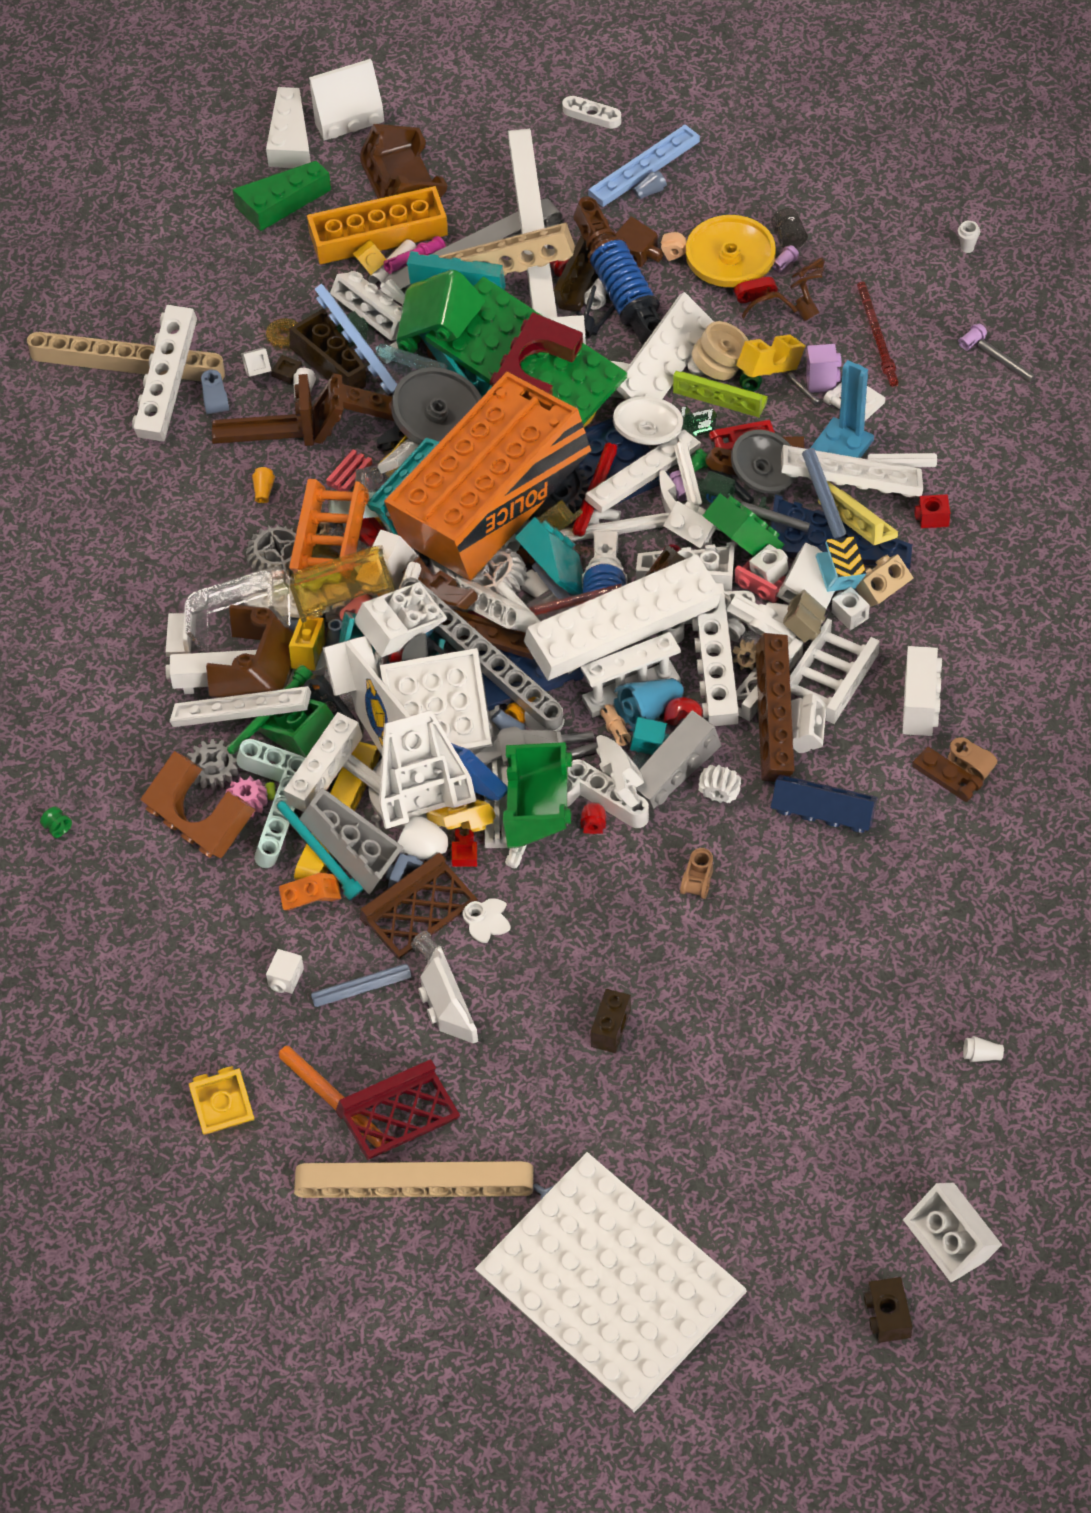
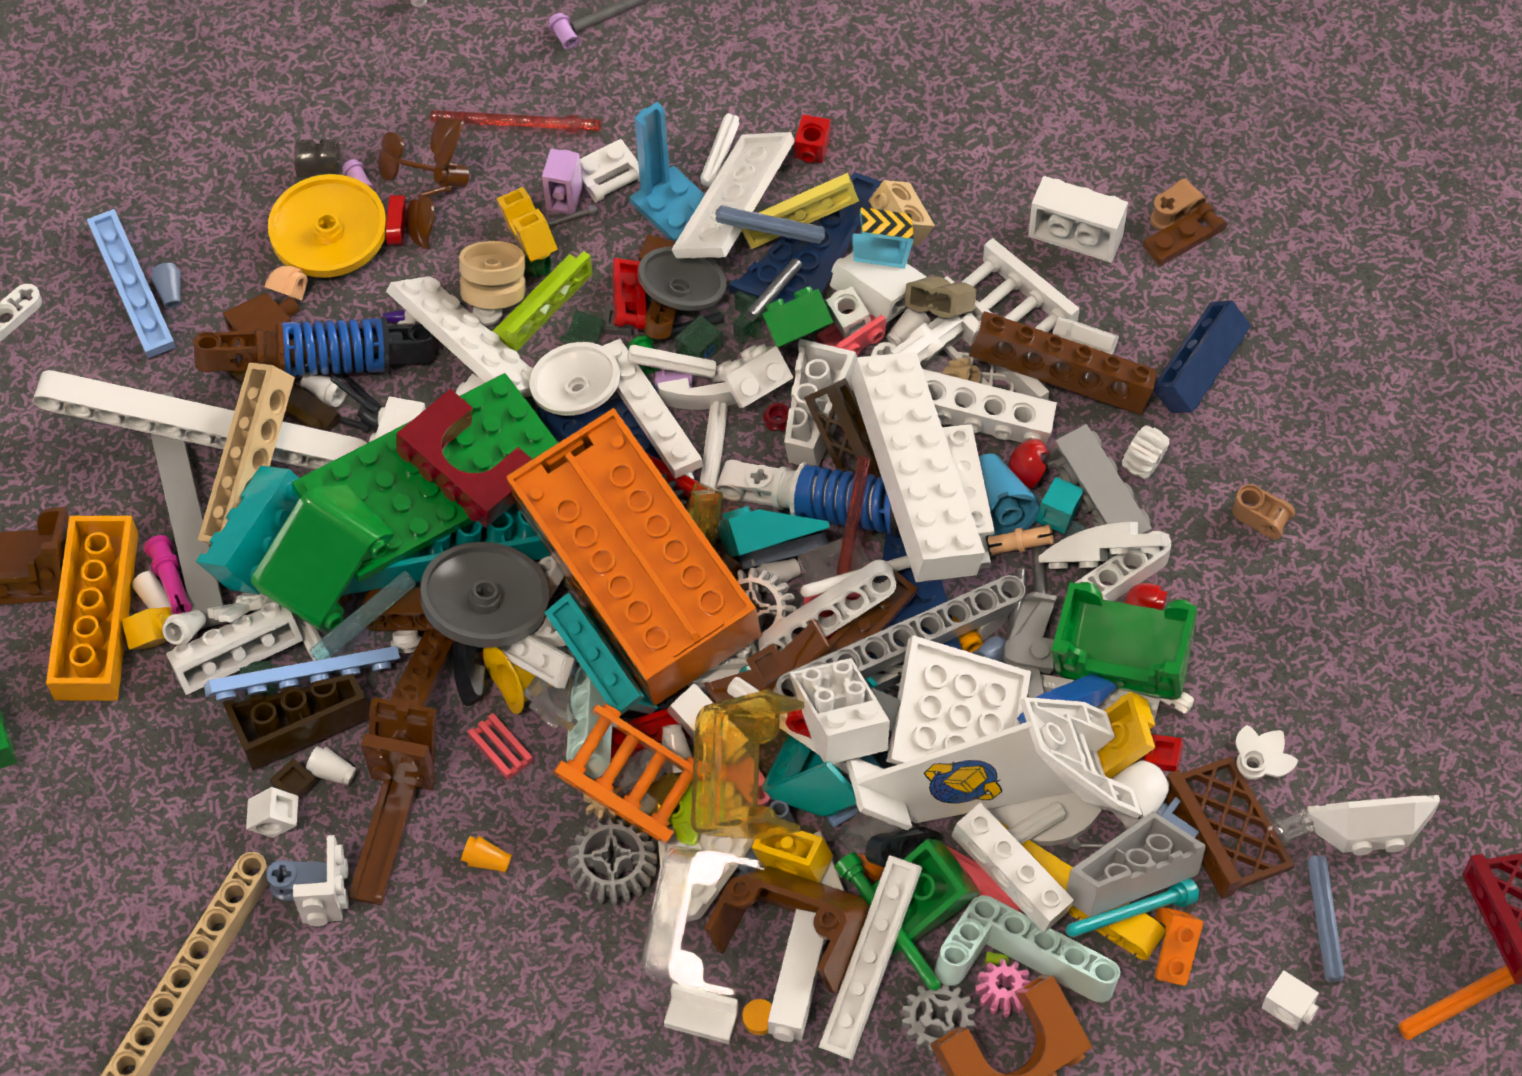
camera: 75 degrees left, 5 degrees up
(156, 426) = (189, 875): white brick -> none
(211, 404) = (325, 901): none -> white bracket
(274, 332) = (213, 763): clear yellow gear -> none
(371, 269) = (182, 627): none -> white cone
(610, 1020) = (1449, 652): dark brown brick -> none
(850, 608) = (933, 251): white brick -> none

